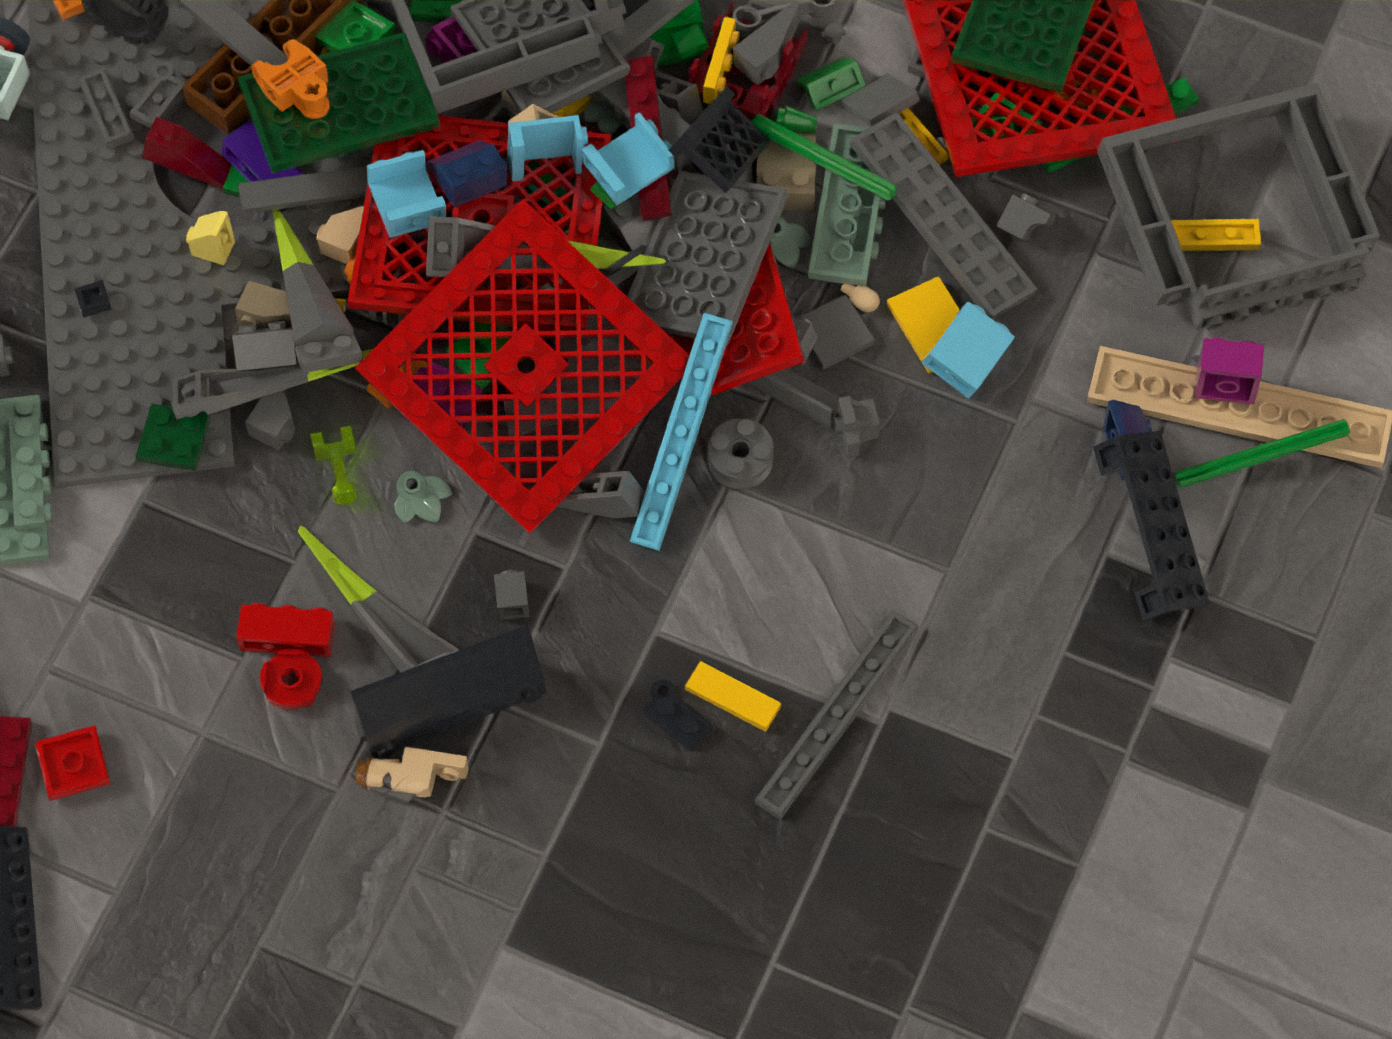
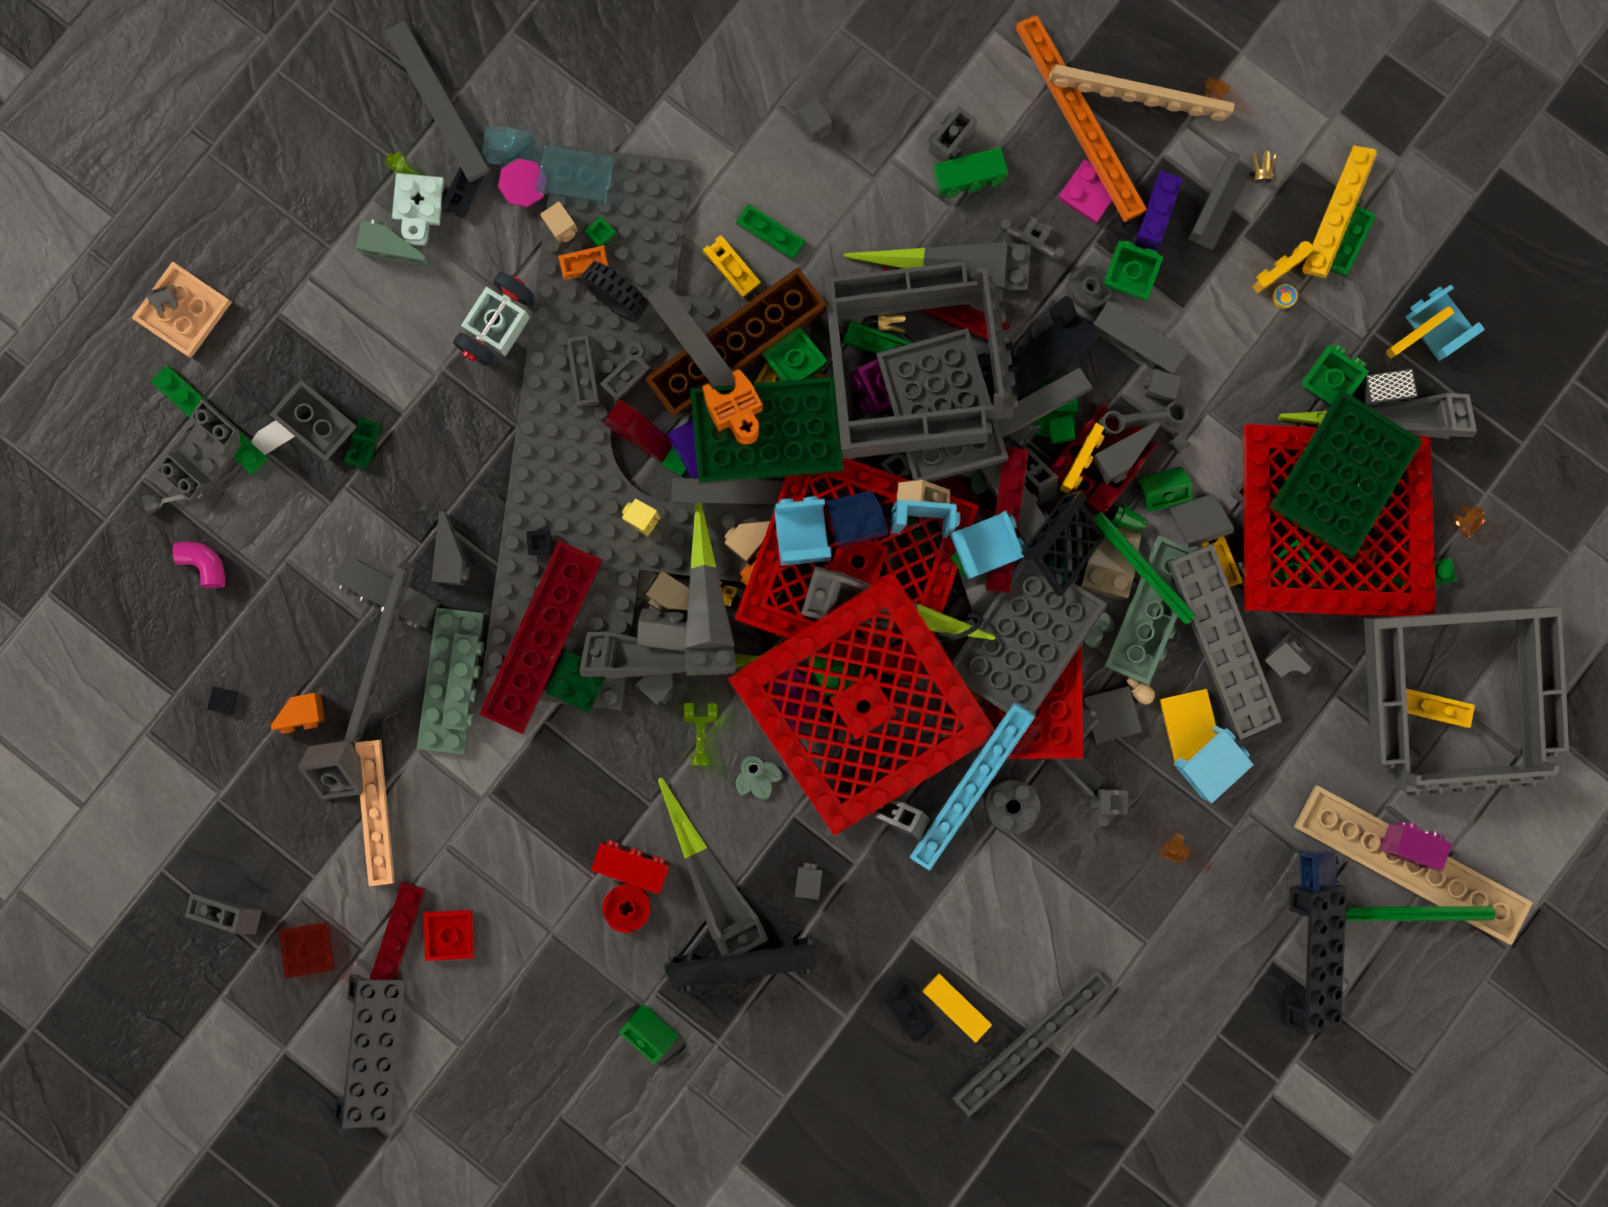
camera: 15 degrees right, 20 degrees up
(116, 398) = (541, 637): none -> dark red plate
(350, 818) = (648, 1034): none -> green panel
(411, 777) = (697, 1015): tan plate -> none
(950, 456) = (1174, 849): none -> clear orange tile
(1194, 33) = (1471, 522): none -> clear orange tile

